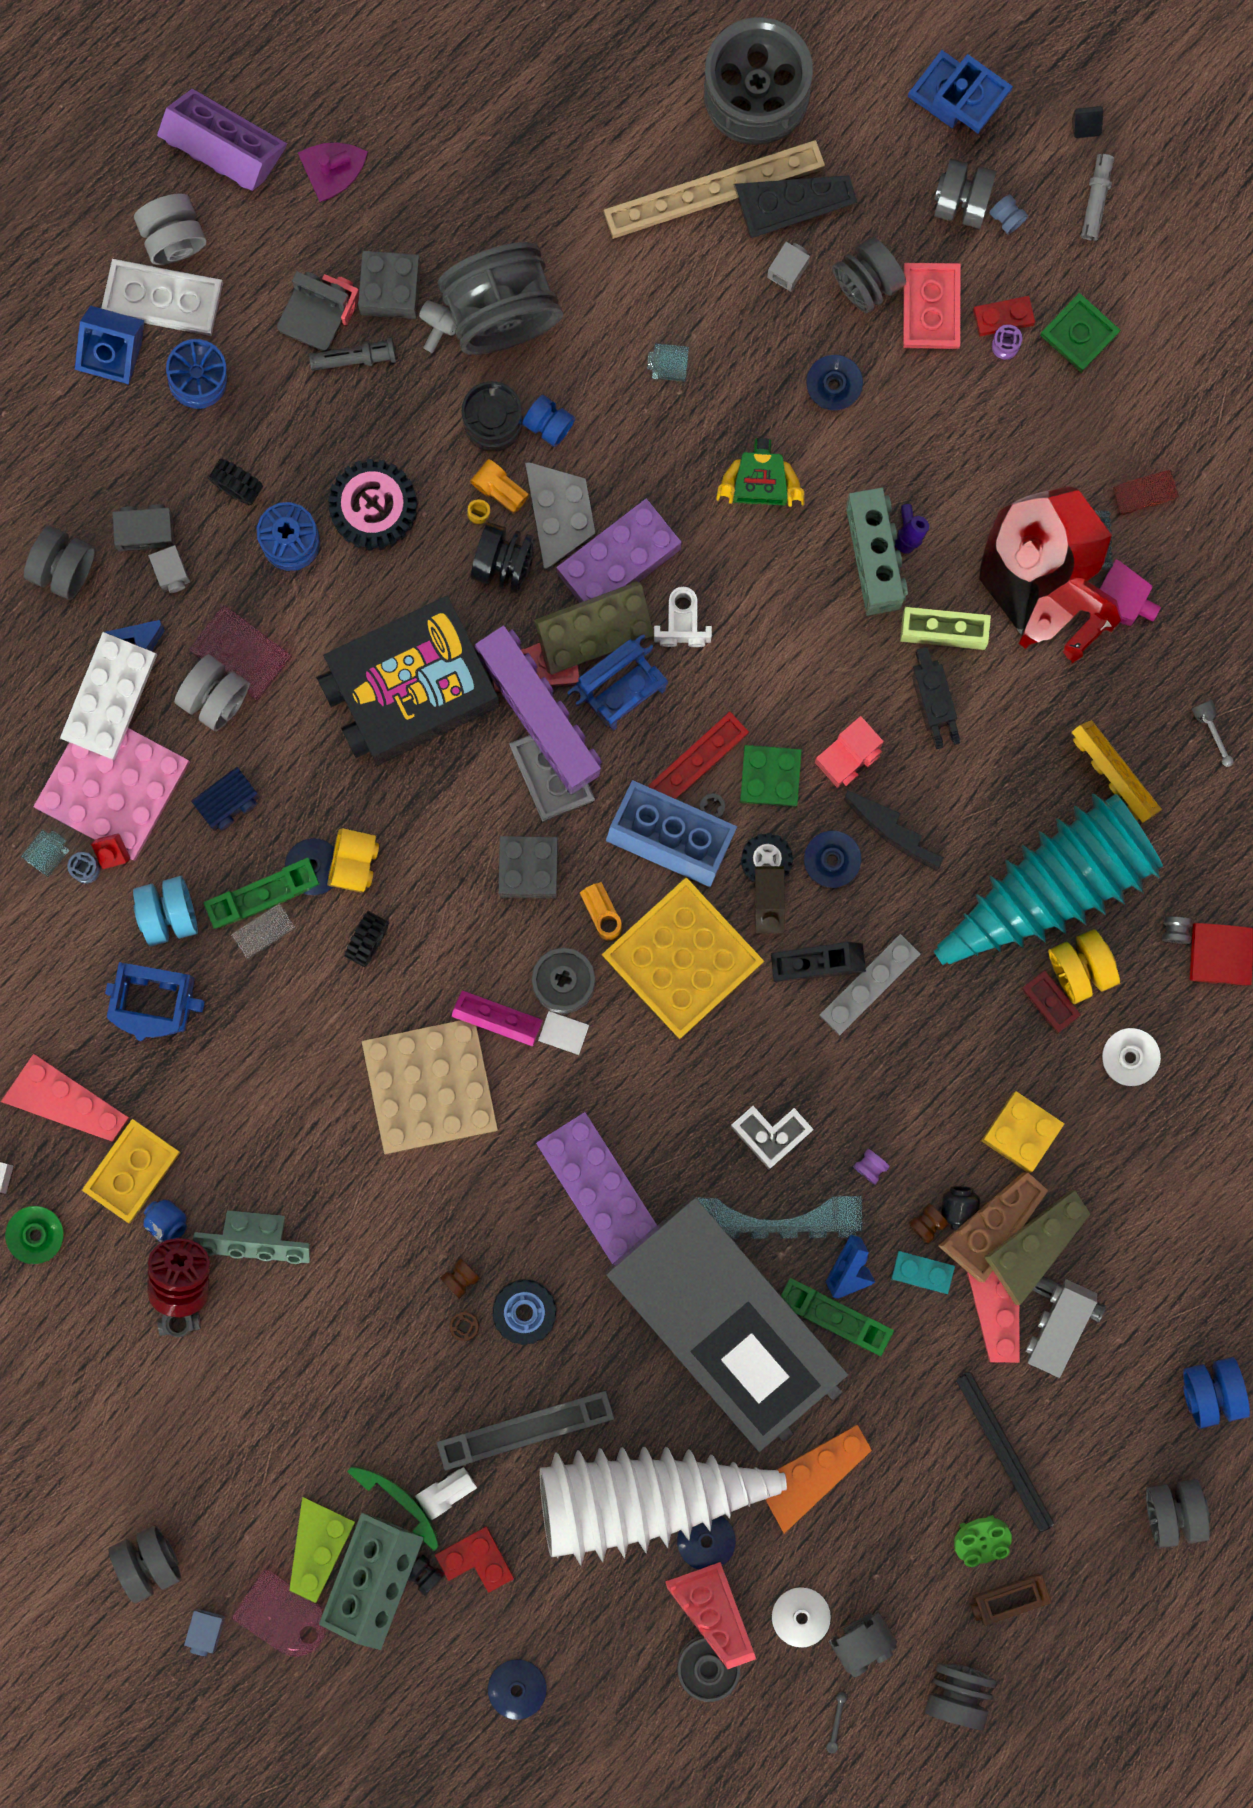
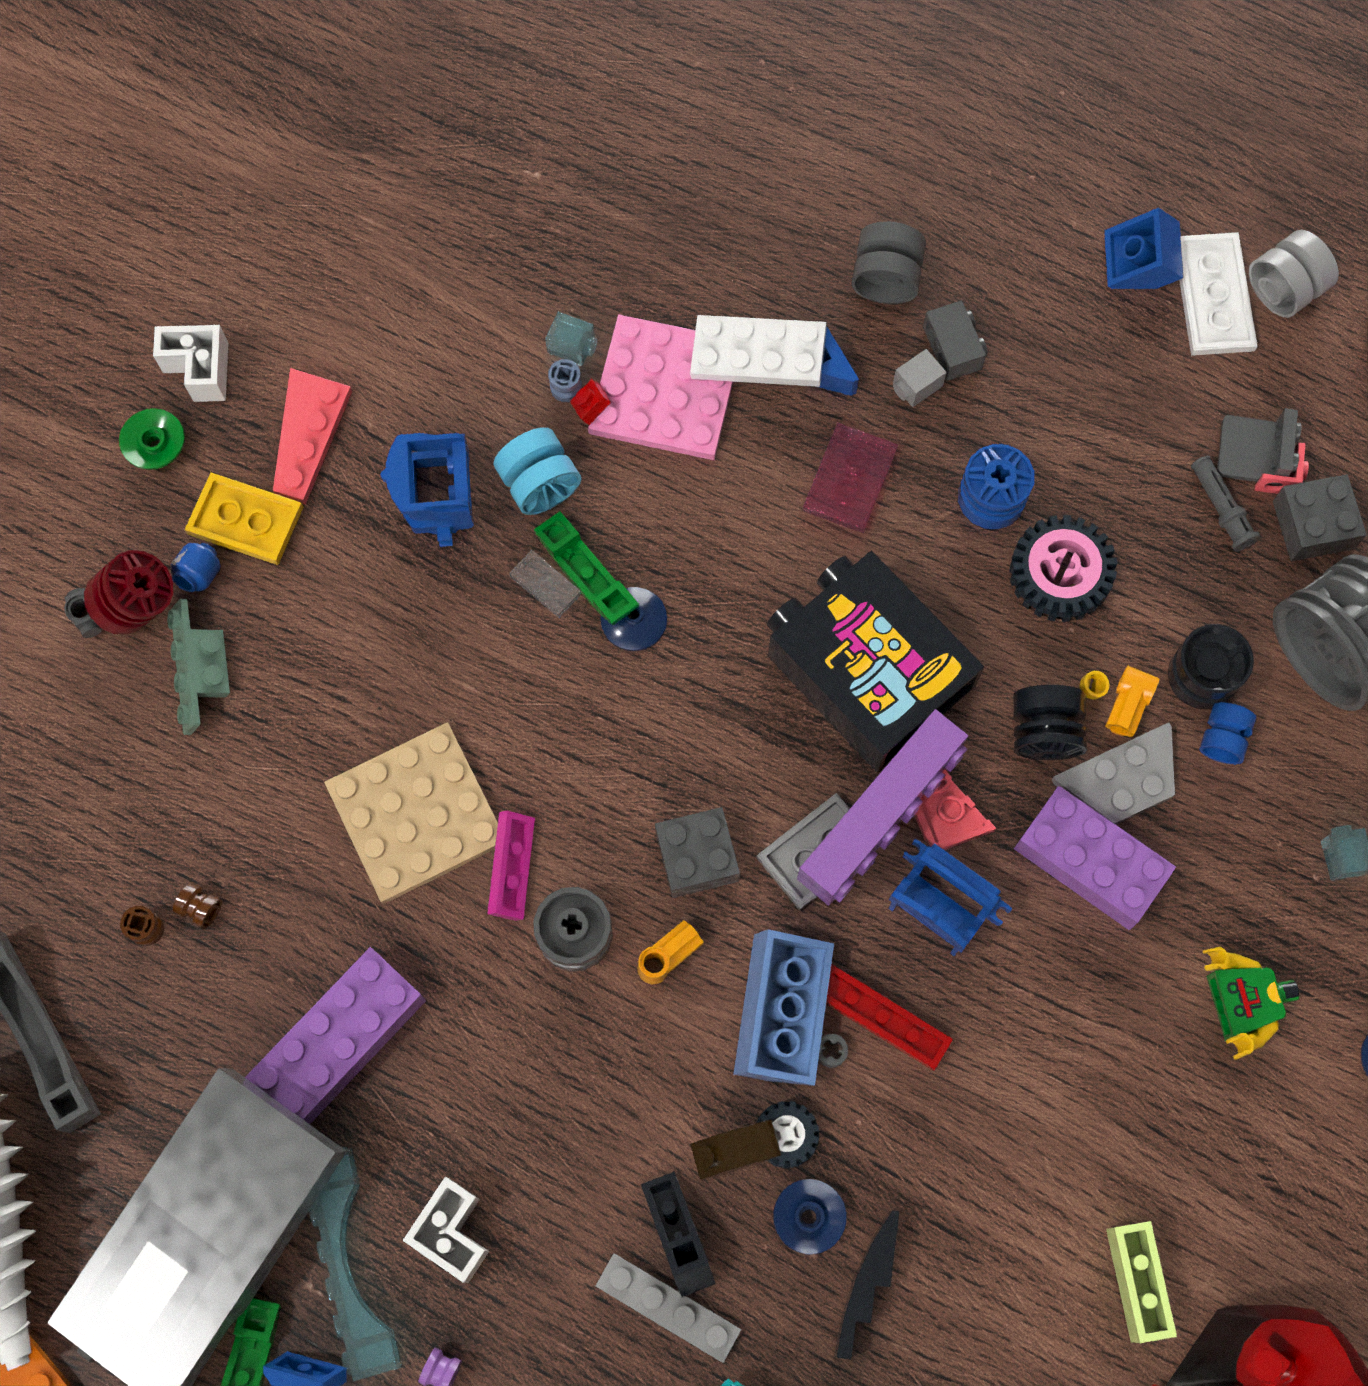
camera: 75 degrees right, 10 degrees down
(196, 373) = (1144, 343): blue wheel -> none
(207, 690) = (794, 453): light grey wheel -> none
(226, 800) = (681, 504): dark blue brick -> none
(235, 481) = (1038, 415): black tyre -> none
(352, 860) = (650, 654): yellow brick -> none
(366, 939) = (563, 693): black tyre -> none
(440, 319) = (1302, 574): light grey piece -> none
(520, 1330) = (152, 984): black wheel -> none
(563, 1032) = (515, 949): white sticker -> none
(593, 627) = (1002, 847): olive plate -> none
(682, 623) = (1040, 953): white pin -> none
(682, 958) = (638, 1065): yellow plate -> none
(770, 776) = (890, 1112): green plate -> none
(851, 750) = (950, 1203): coral brick -> none
(875, 508) = (1261, 1149): sand green brick -> none
(912, 532) = (1247, 1206): dark purple piece -> none
(934, 697) = (1049, 1292): black hinge -> none

